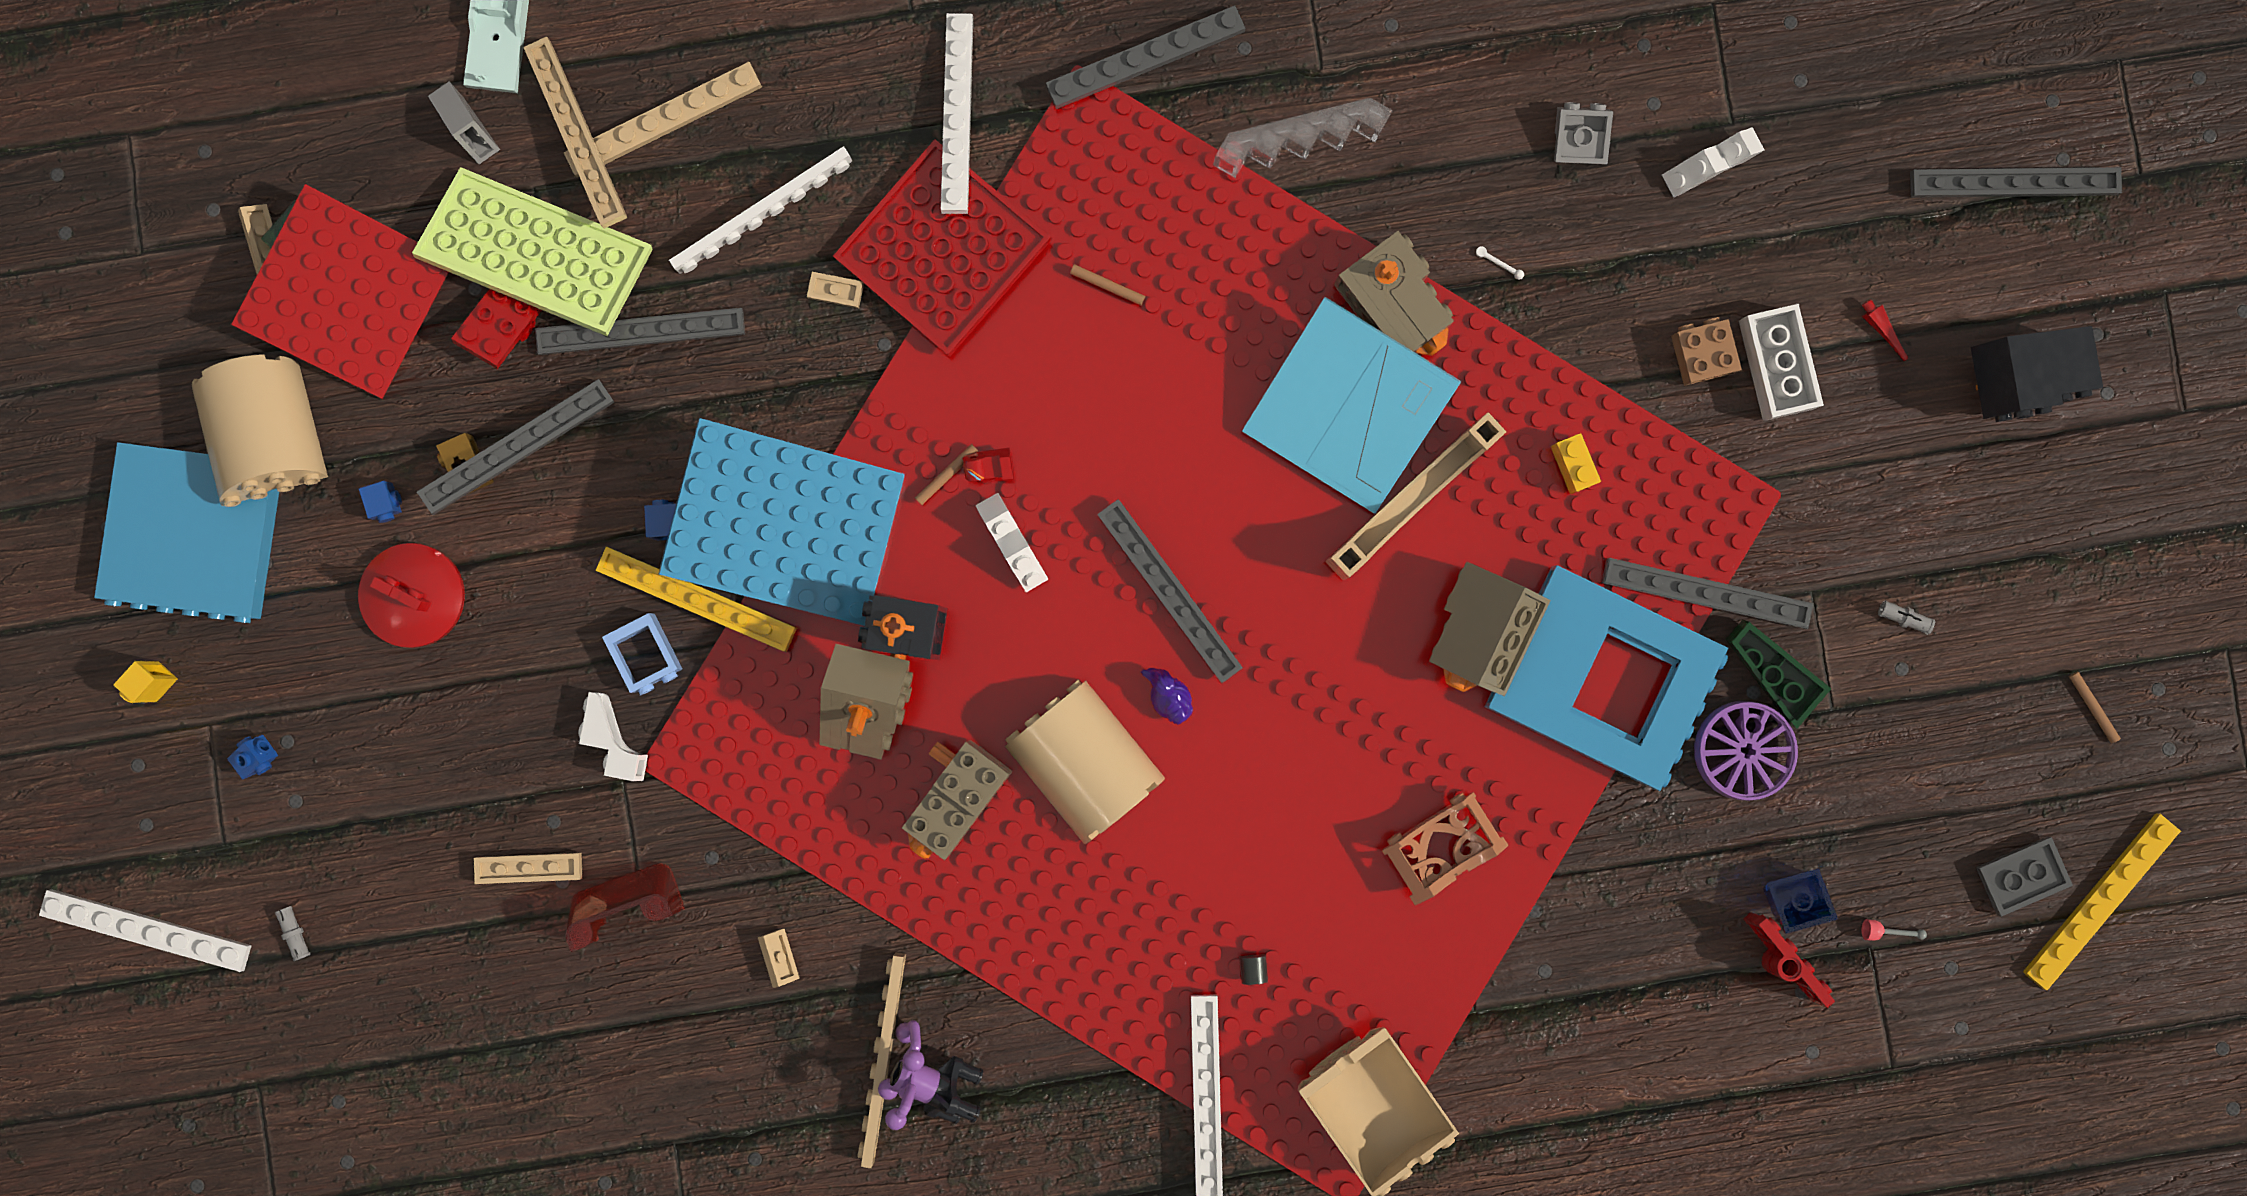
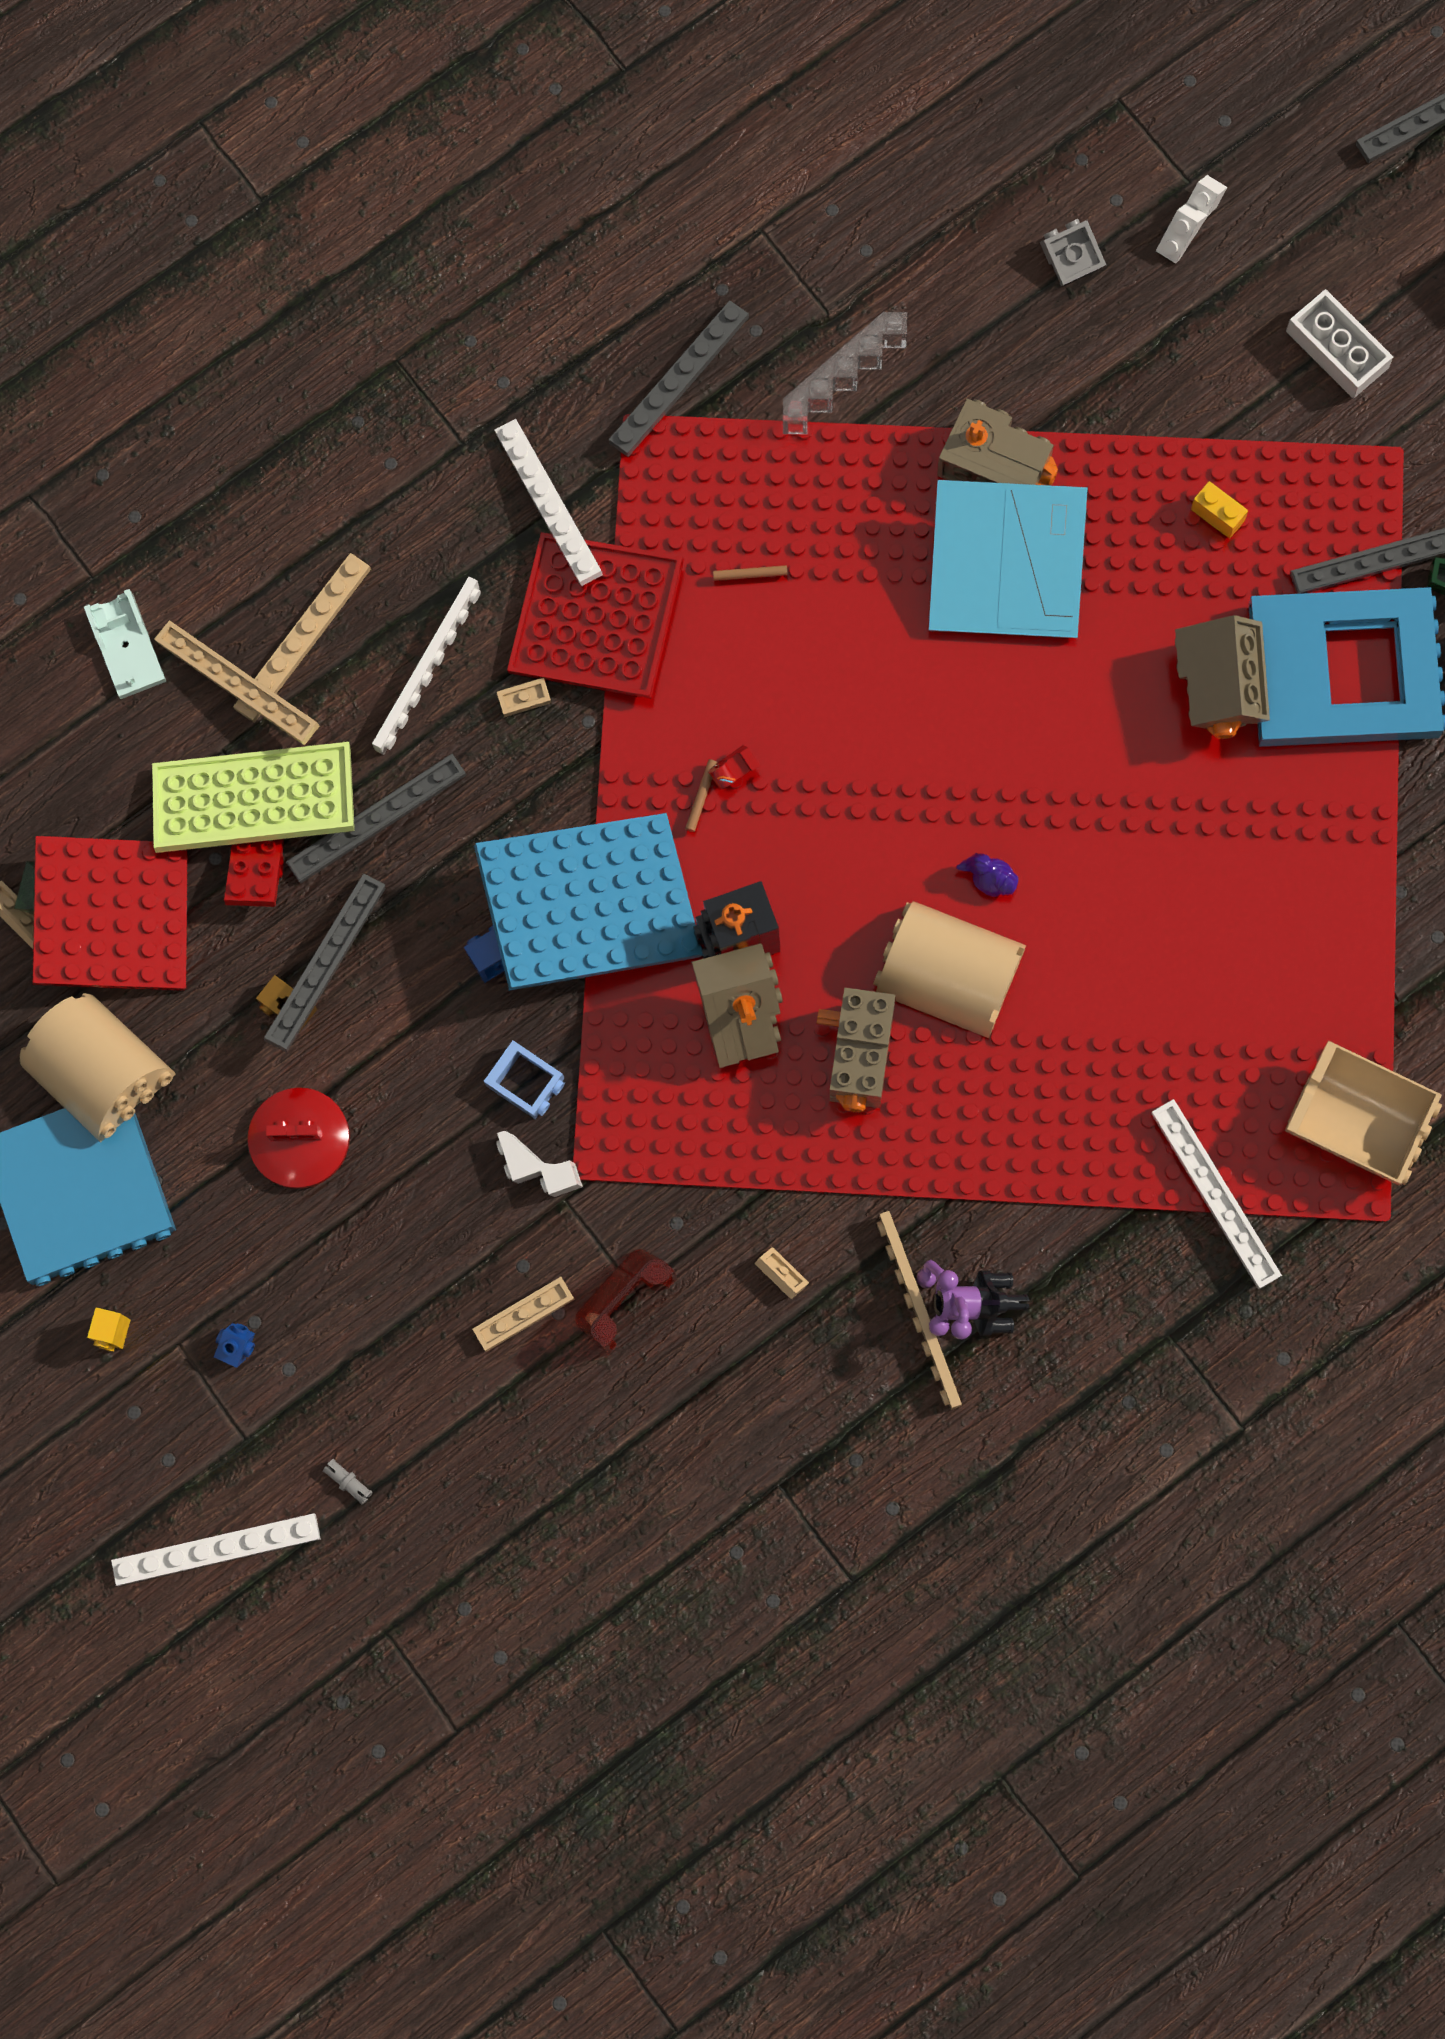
camera: 20 degrees left, 10 degrees down
(381, 501) = (231, 1072): blue brick -> none
(463, 123) = (136, 725): light grey slope -> none
(696, 599) = (546, 1009): yellow plate -> none
(1011, 542) = (791, 819): white arch -> none
(1169, 591) = (943, 790): dark grey plate -> none
(1253, 969) = (1191, 1062): pearl dark grey brick -> none
(1415, 495) = (1103, 602): tan arch -> none
(1479, 848) = (1292, 909): nougat fence -> none
(1482, 252) = (1044, 388): white hinge -> none
(1706, 351) = (1273, 367): medium nougat brick -> none
(1880, 322) = (1398, 270): red piece -> none

